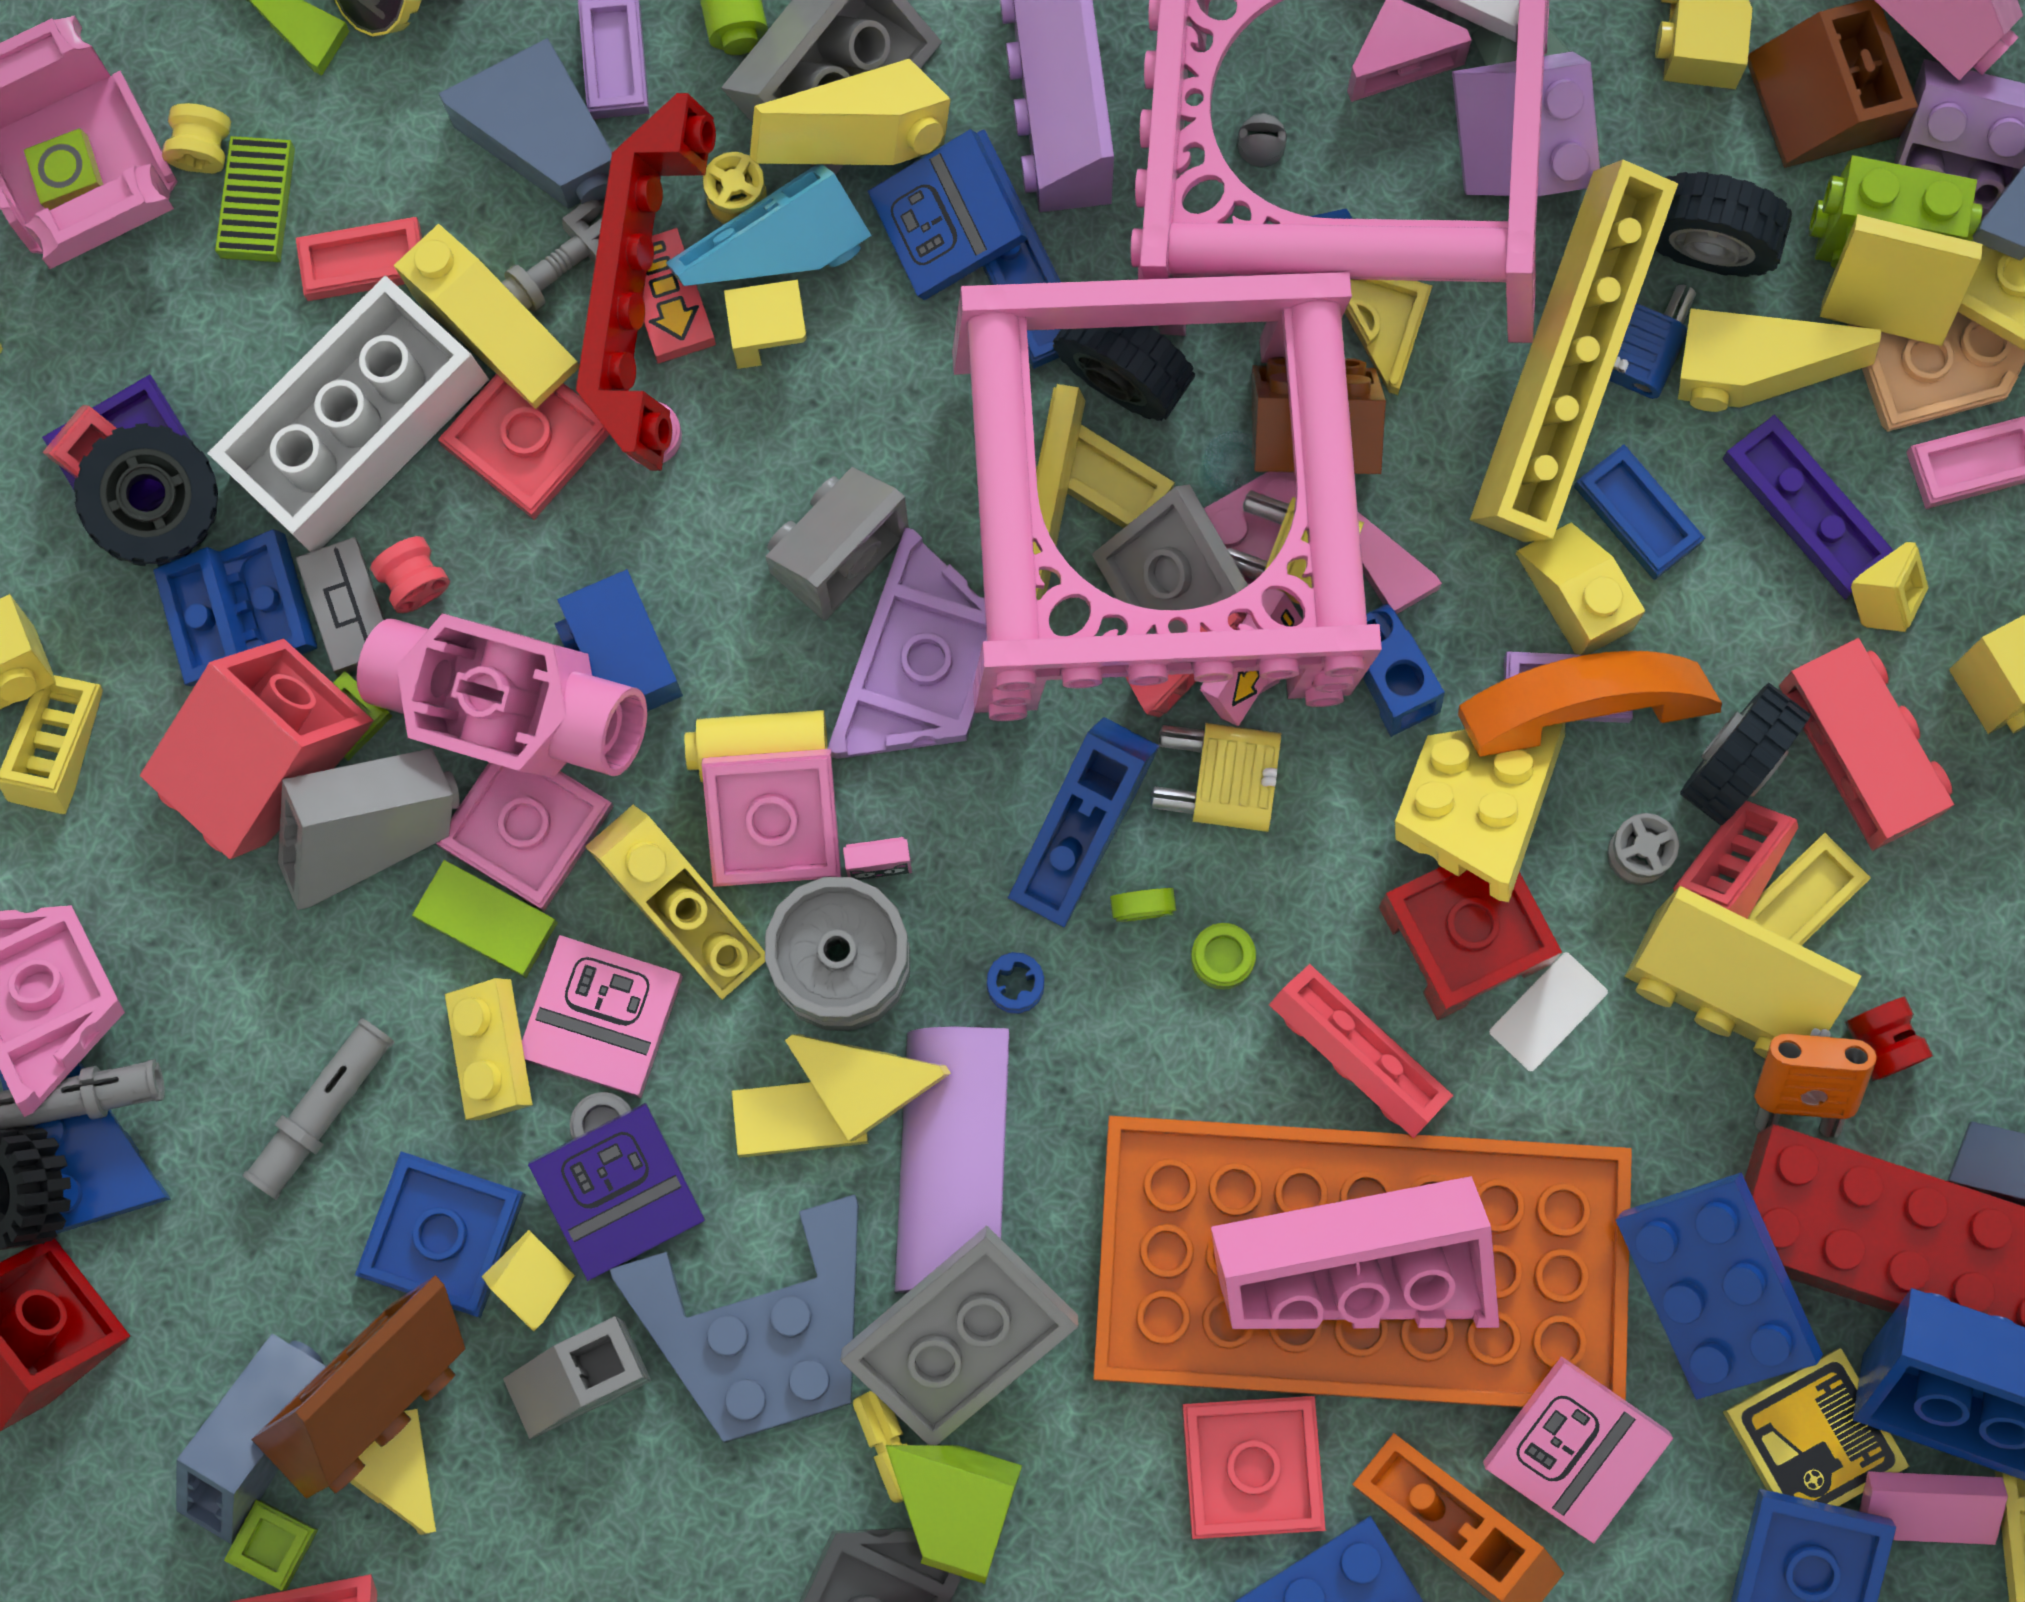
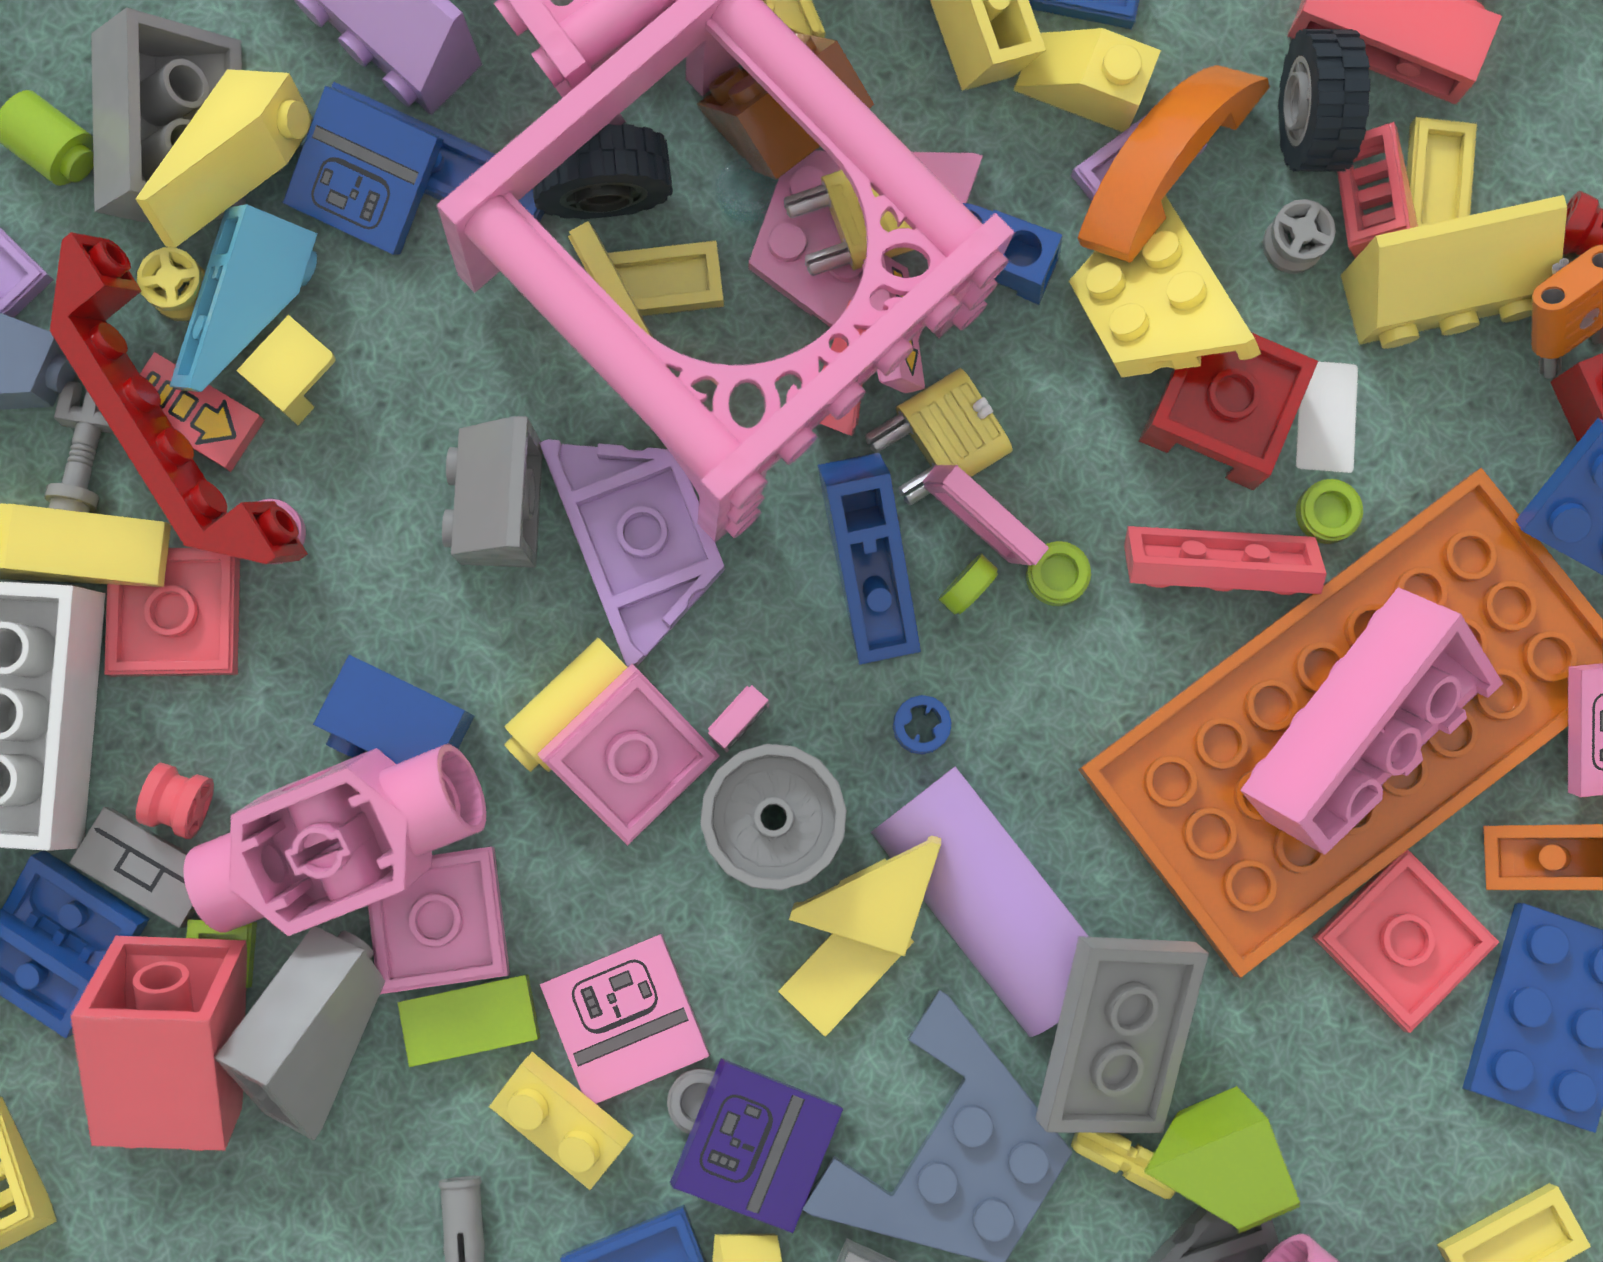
camera: 45 degrees left, 5 degrees up
(677, 900) = (608, 880): light yellow slope -> none
(1170, 558) = (772, 302): light grey plate -> none
(1198, 859) = (984, 515): none -> bright pink tile
(1483, 1085) = (1329, 511): none -> lime tile

